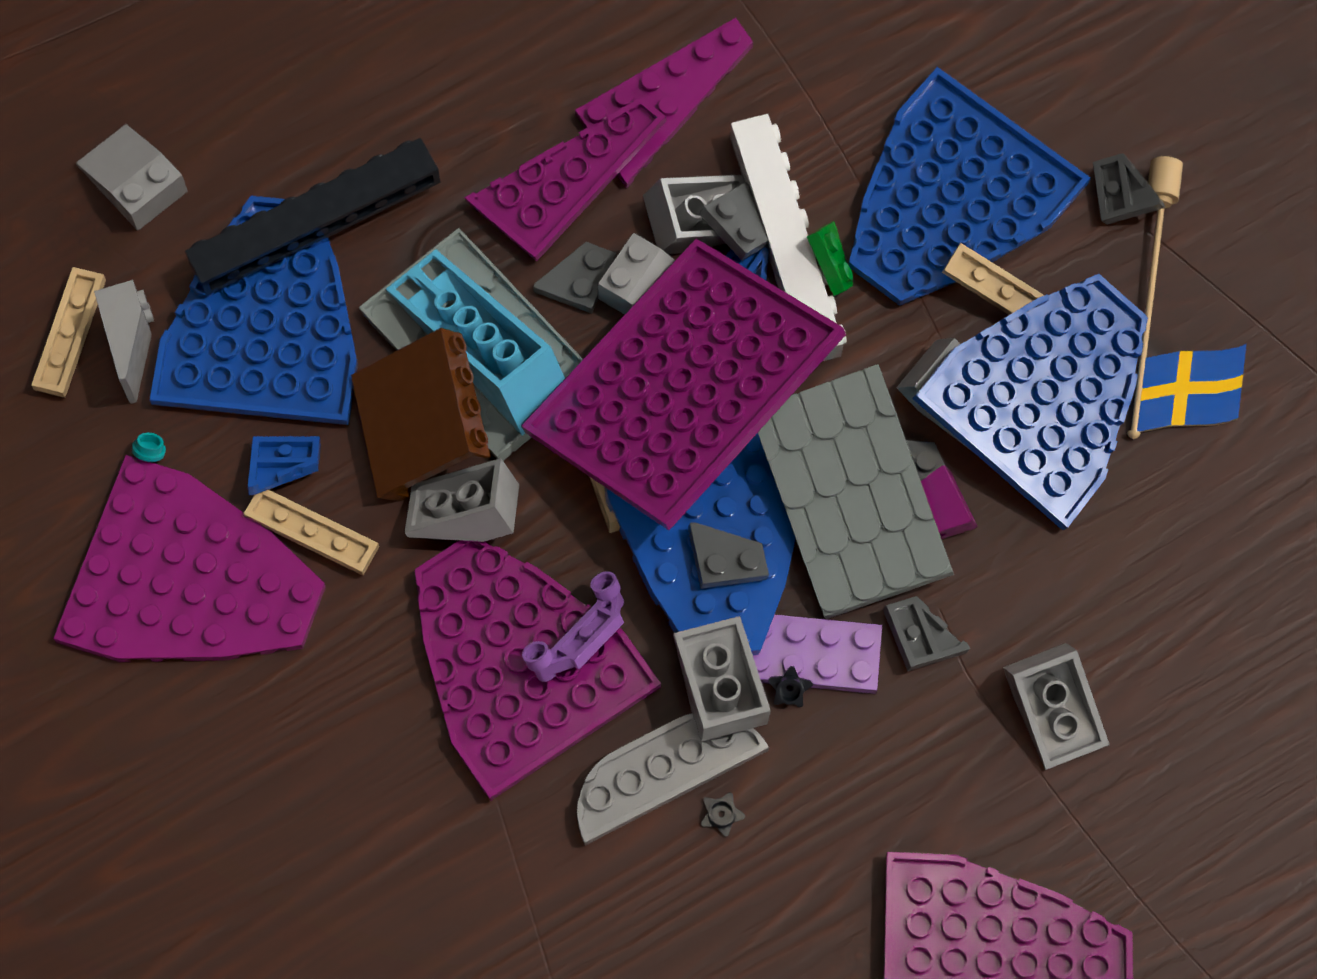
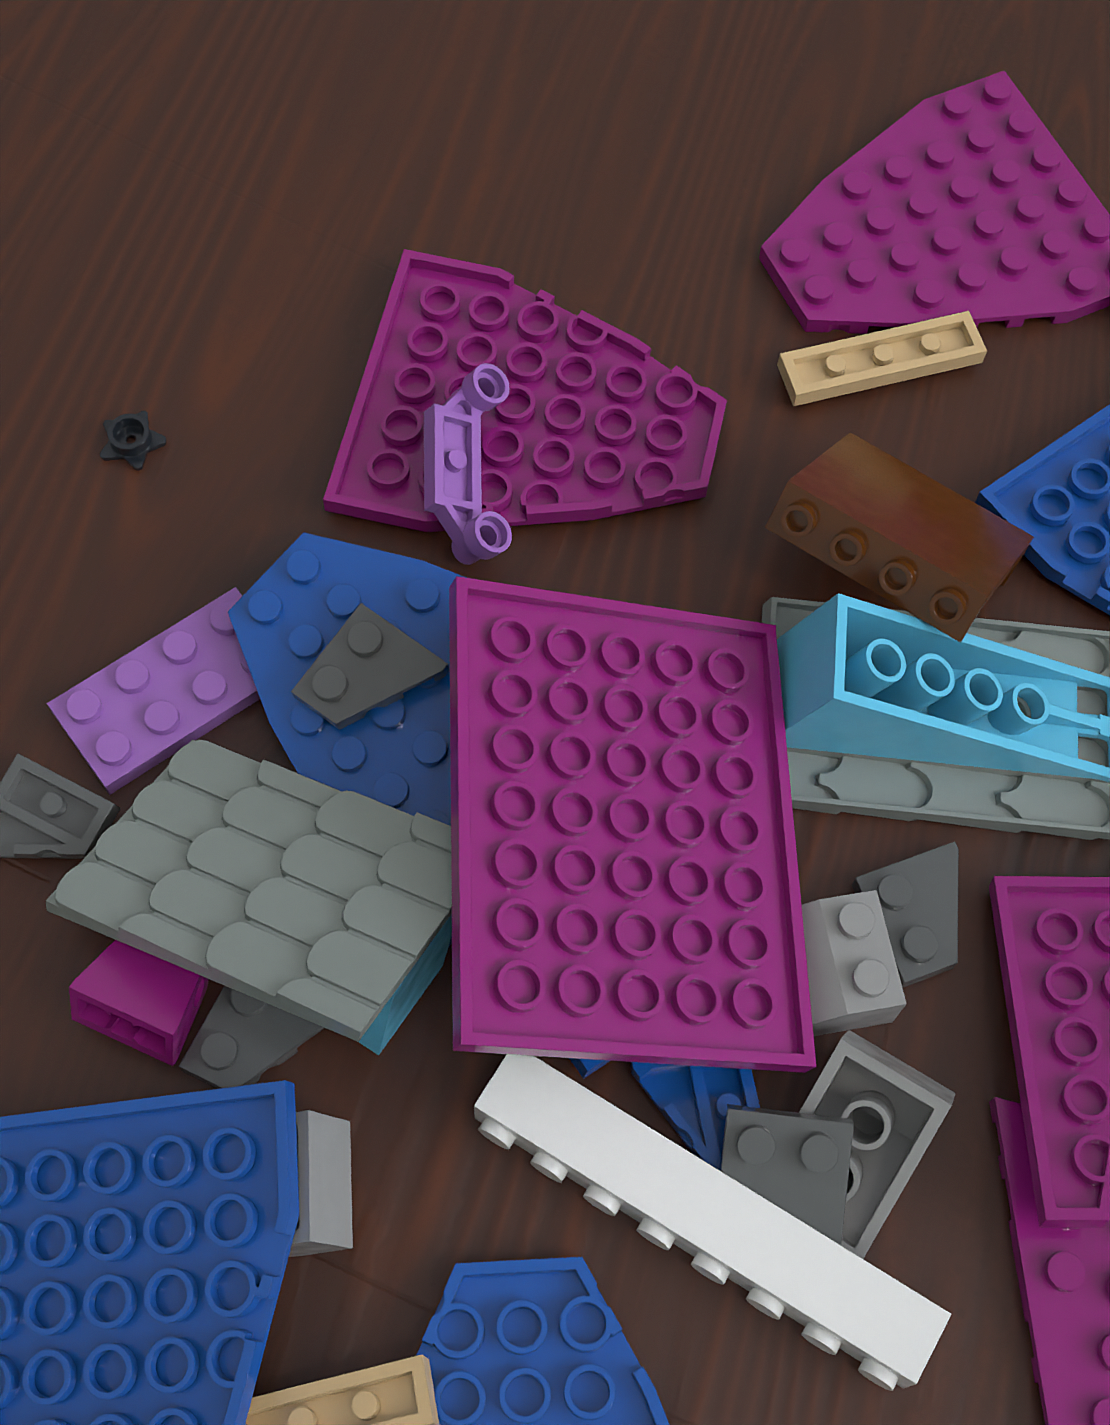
camera: 135 degrees right, 5 degrees down
(281, 460) = (996, 393): blue wing -> none
(465, 504) = (729, 499): light grey slope -> none
(656, 772) = (235, 428): light grey plate -> none
(721, 679) = (236, 522): light grey slope -> none
(787, 696) = (161, 618): black plate -> none
(831, 258) = (616, 1237): green wing -> none

